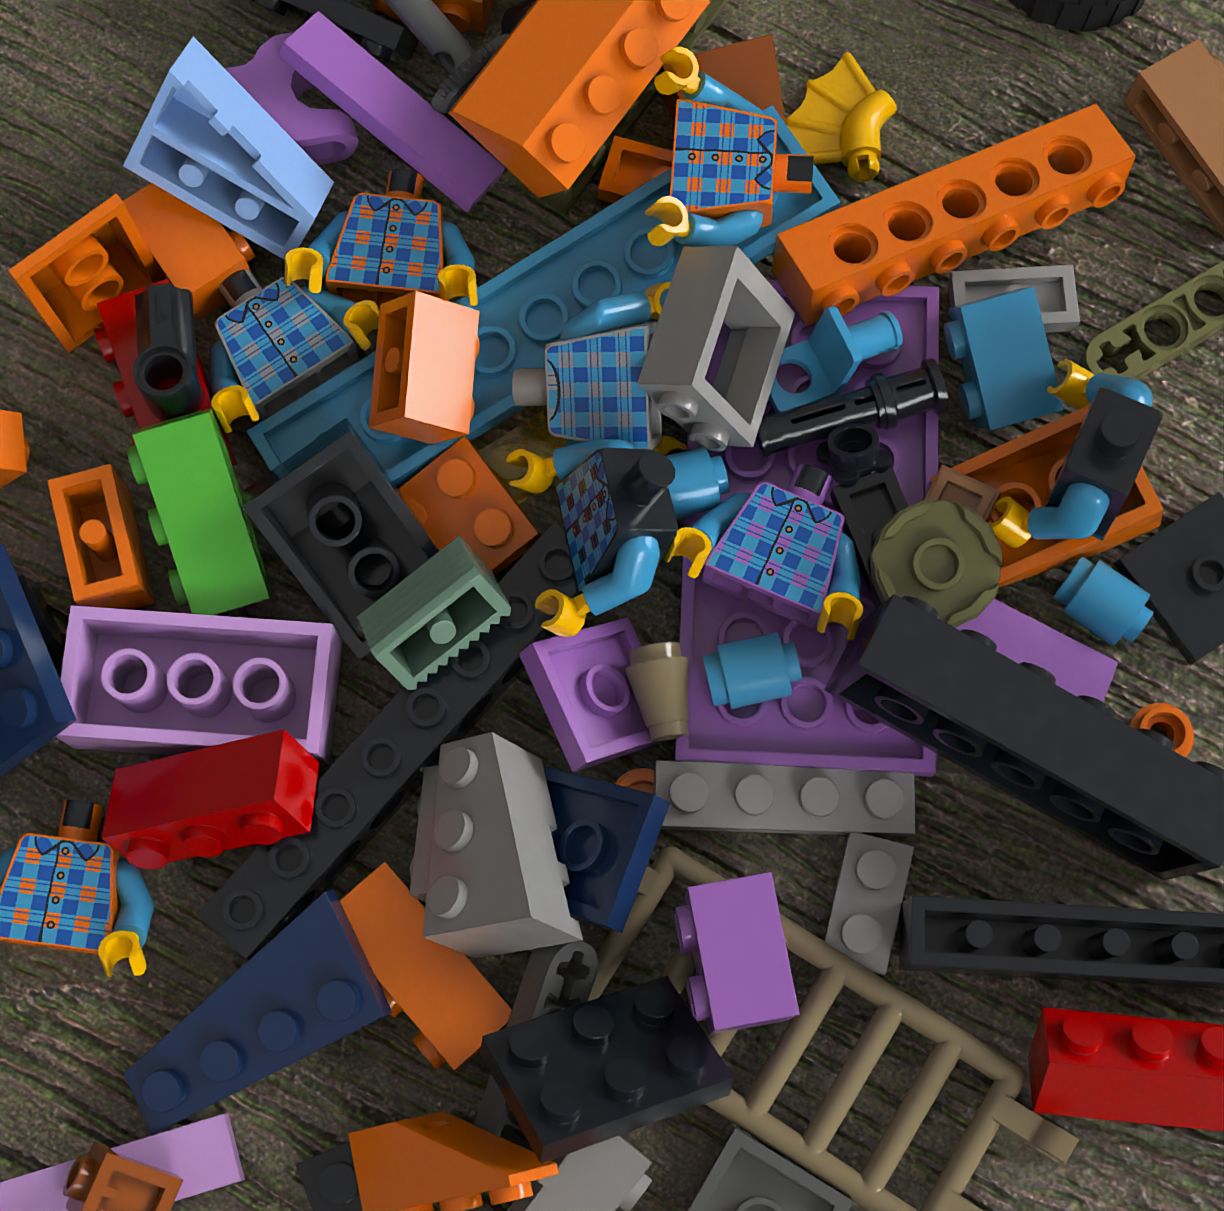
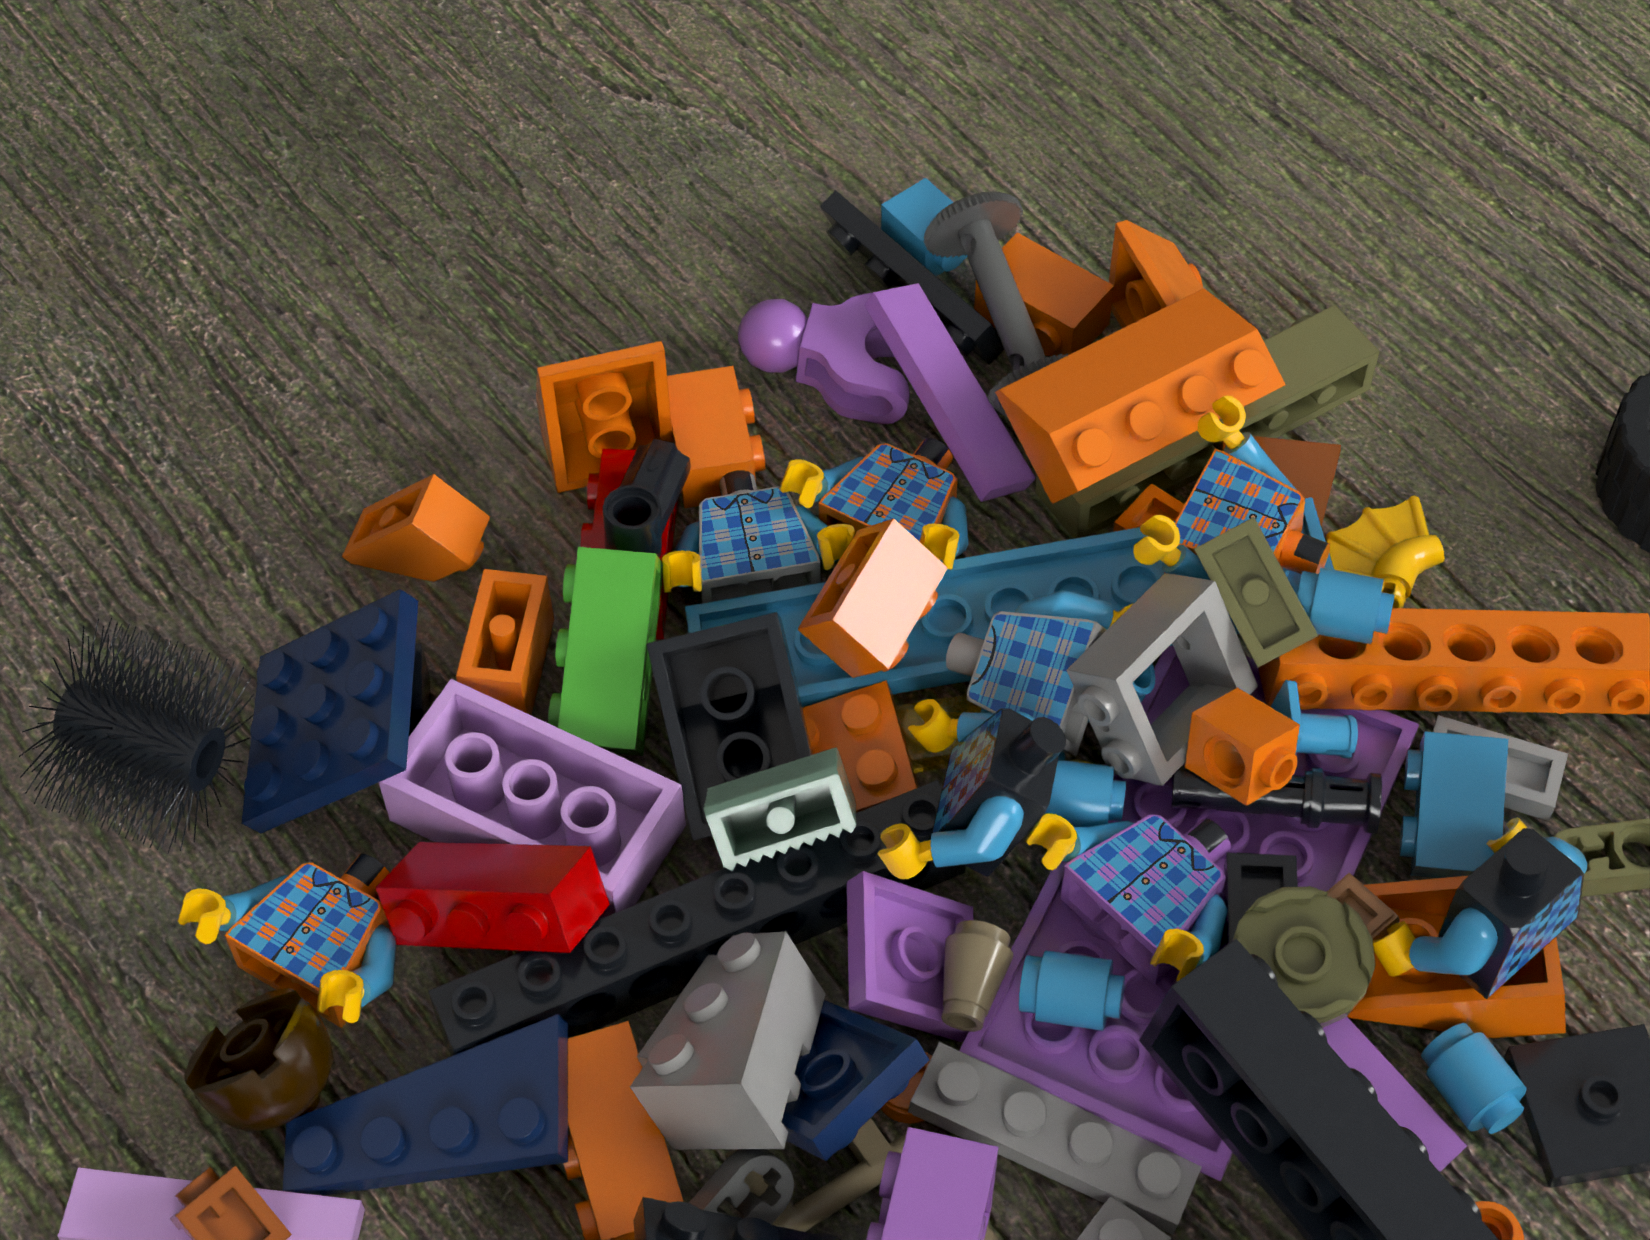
camera: 25 degrees right, 20 degrees down
(77, 1039) = (265, 1065): none -> dark brown cylinder
(227, 155) = (778, 364): light blue wedge -> none
(772, 236) = (1256, 592): none -> olive plate
(812, 386) = (1242, 746): none -> orange brick
(848, 213) = (1345, 604): none -> dark azure brick
(853, 453) = (1262, 829): black plate -> none

